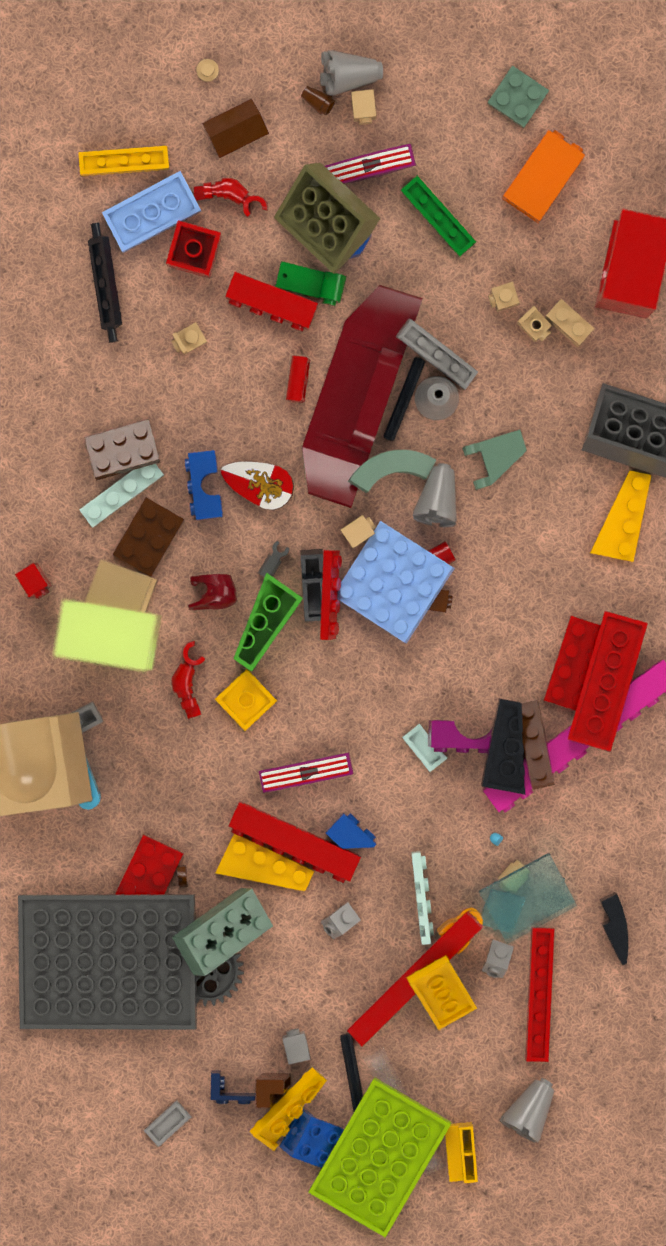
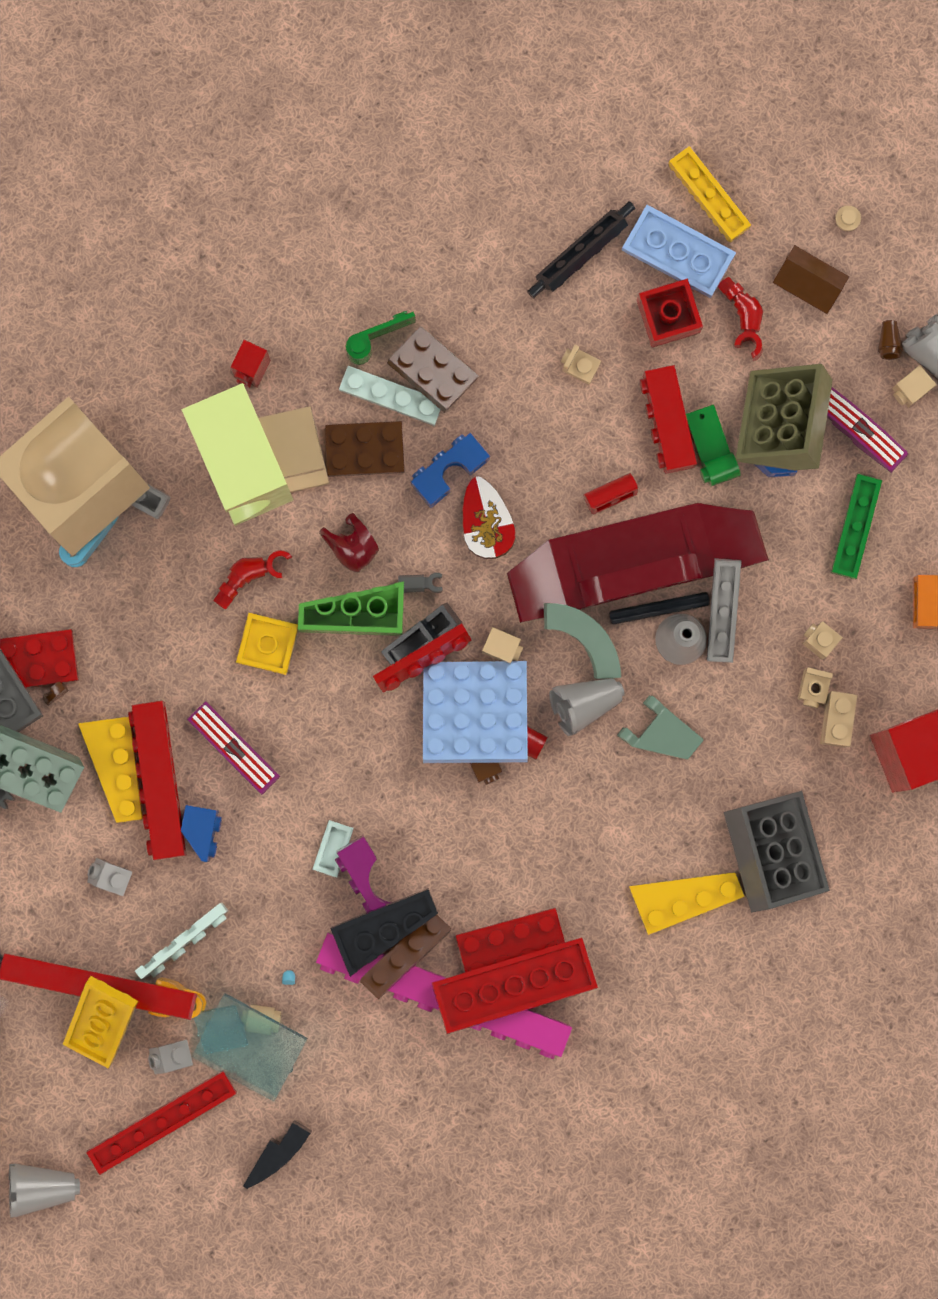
camera: 50 degrees right, 5 degrees down
(71, 492) = (359, 344): none -> green door

